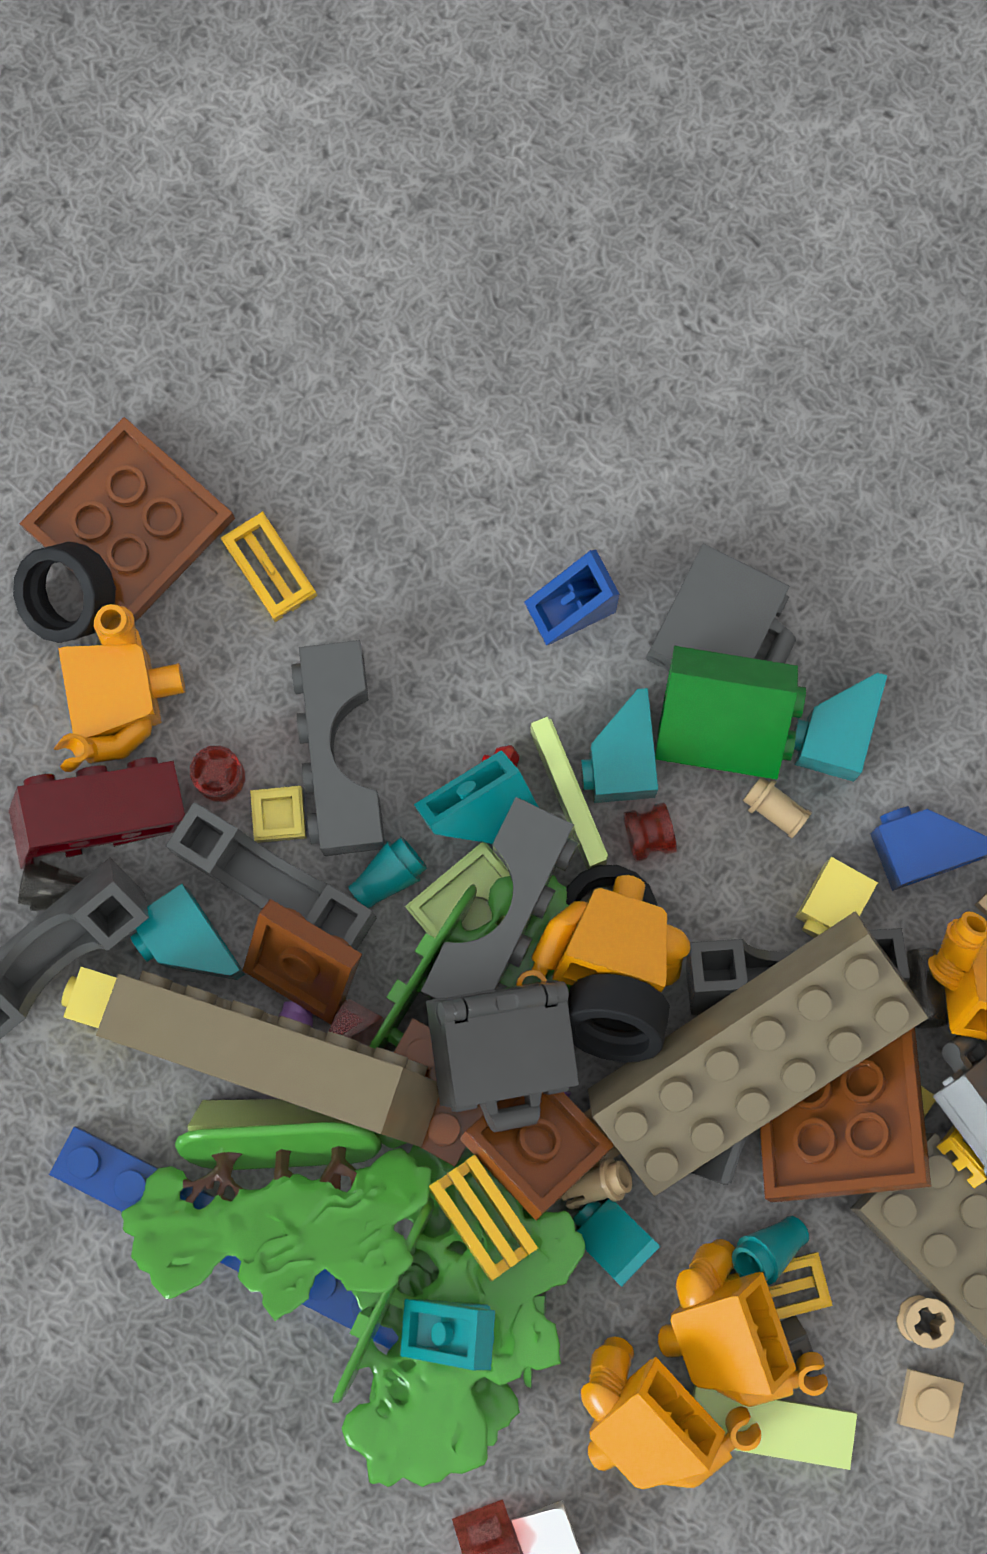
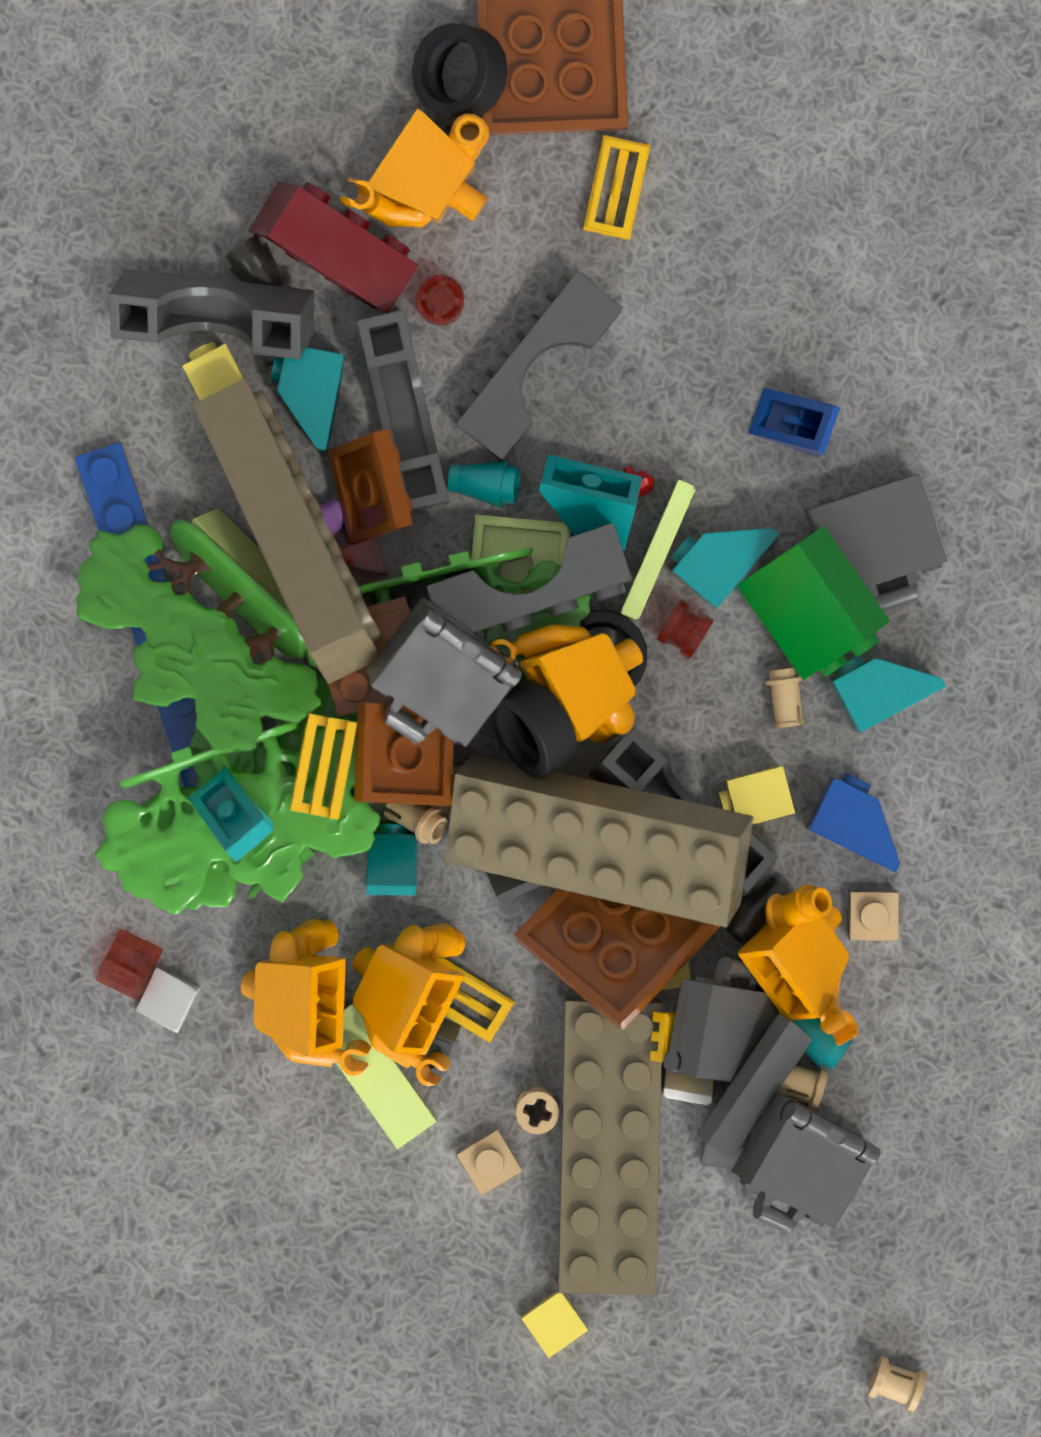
camera: 40 degrees right, 10 degrees up
(278, 814) = (454, 367): light yellow tile -> none
(770, 1249) = (486, 968): teal cone -> none

